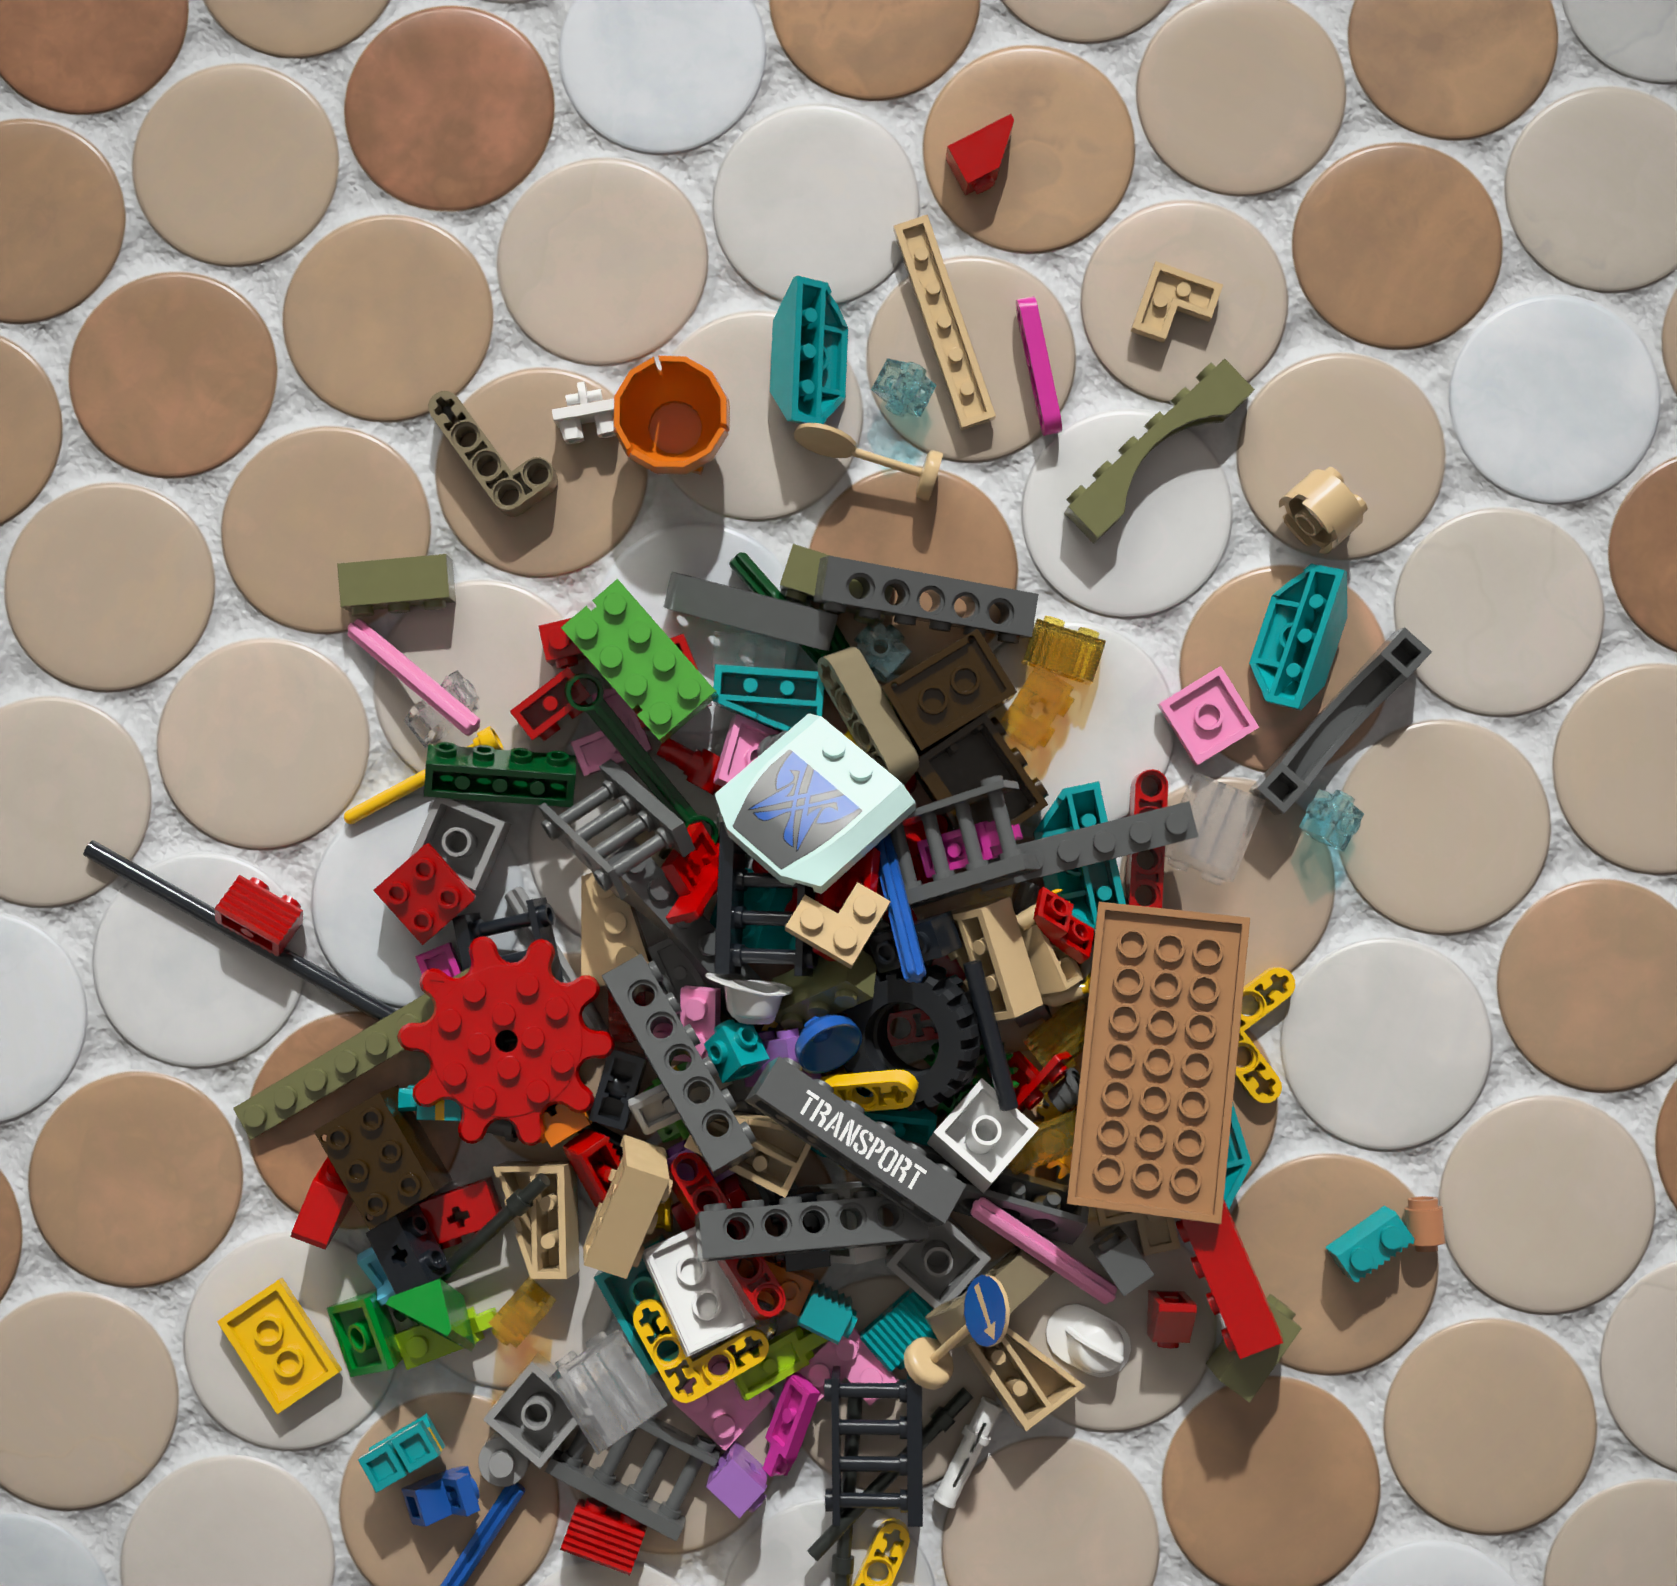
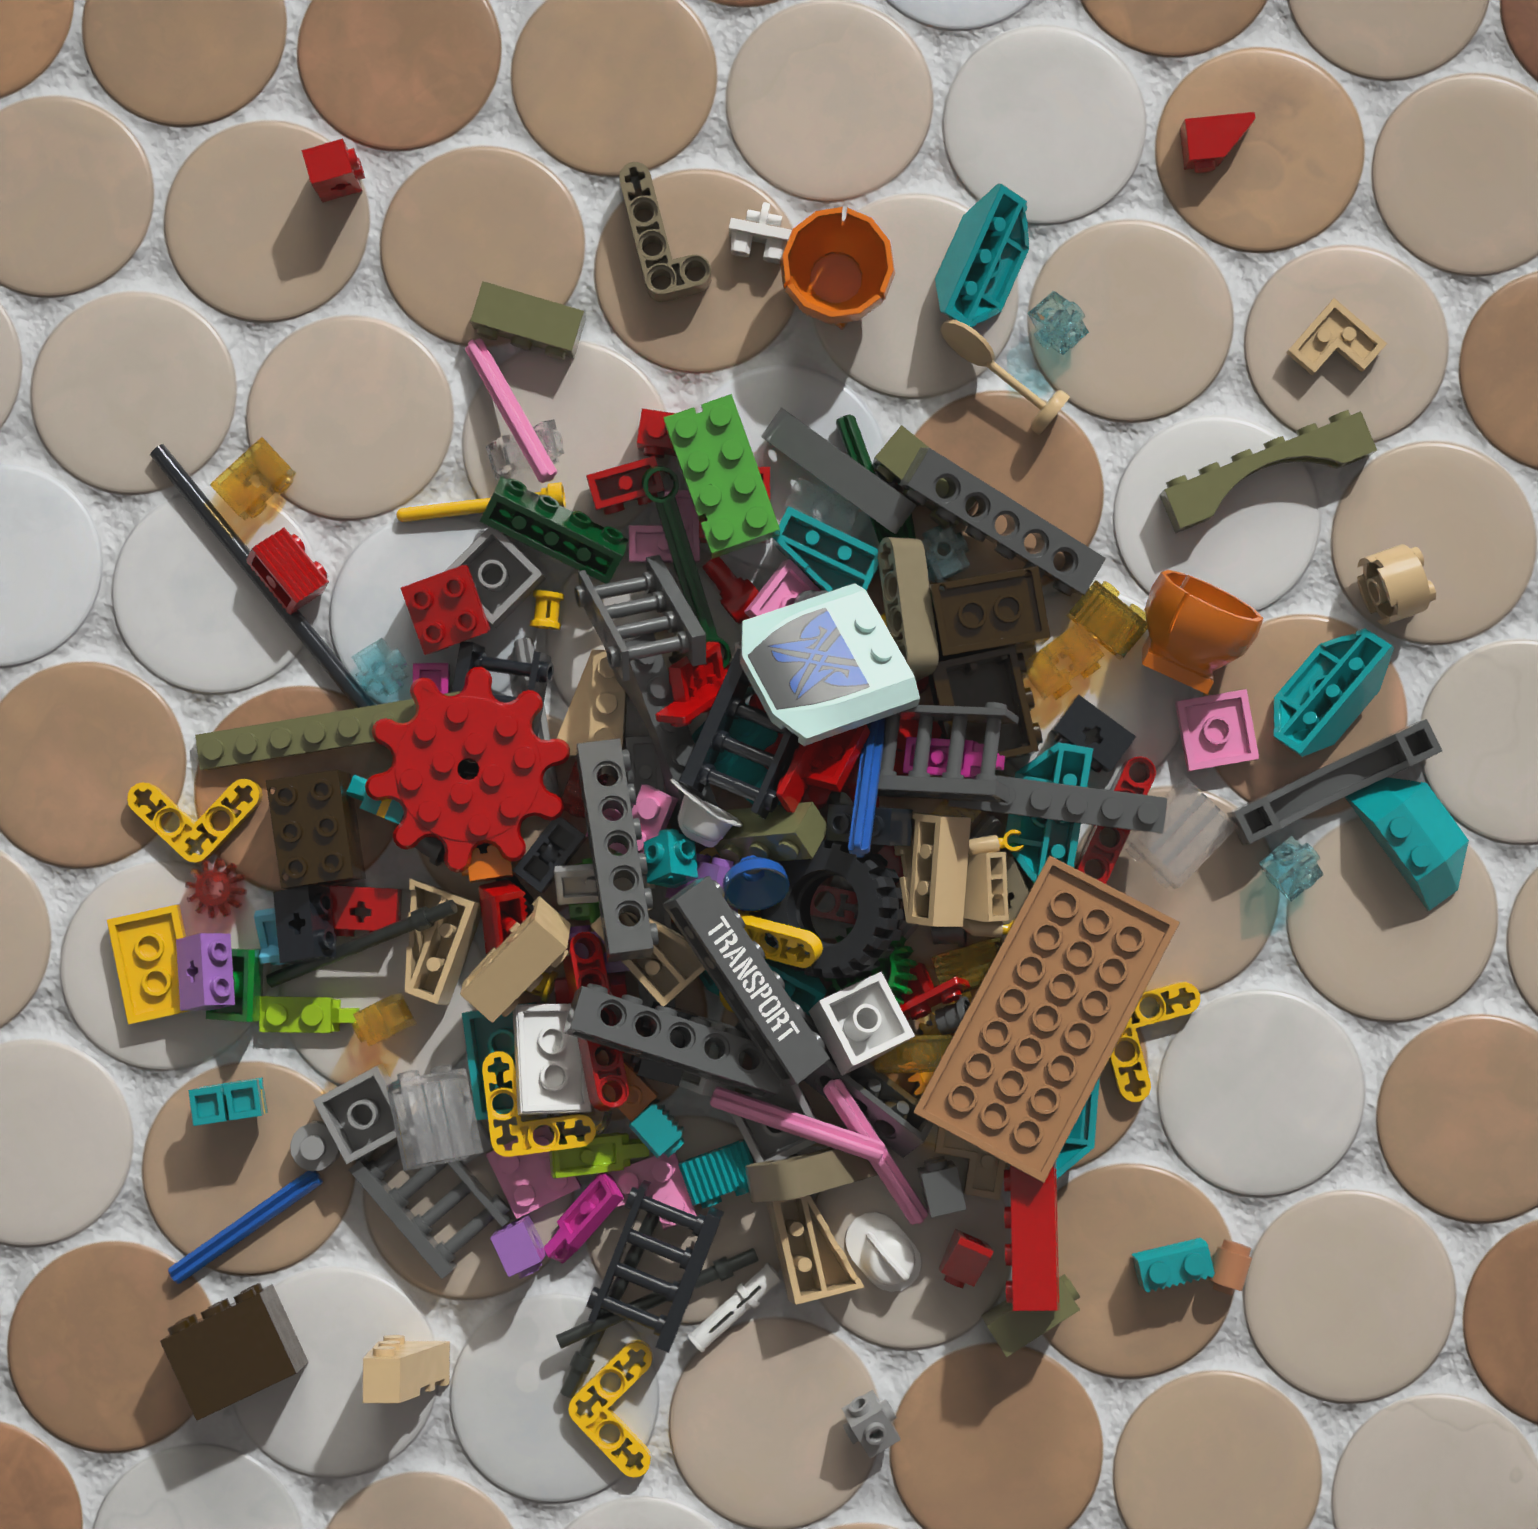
camera: 20 degrees right, 0 degrees up
(151, 513) = (333, 170): none -> red brick
(176, 850) = (237, 488): none -> clear yellow brick
(263, 1200) = (188, 828): none -> yellow beam
(315, 1263) = (213, 901): none -> clear red gear
(322, 1208) = (245, 853): red slope -> none
(331, 1335) = (205, 972): none -> medium lavender brick
(373, 973) = (369, 662): none -> clear light blue brick
(437, 1309) = (309, 986): green slope -> none
(442, 1496) = (247, 1156): blue brick -> none
(527, 842) = (553, 600): none -> yellow bush
(603, 1536) = (378, 1250): red brick -> none
(841, 933) = (808, 789): tan plate -> none
(944, 322) = (1118, 278): tan plate -> none
(959, 1257) = (797, 1124): none -> bright pink axle
(986, 1321) = (800, 1183): piece -> none
(990, 1035) = (904, 934): black piece -> none
(1038, 366) = (1189, 351): dark pink beam -> none
(1066, 932) = (1003, 856): red slope -> none
(1111, 761) = (1084, 716): none -> black brick
(1139, 1506) = (871, 1423): none -> light grey brick
(1151, 628) = (1195, 629): none -> orange plate
(1435, 741) = (1414, 835): none -> teal wedge

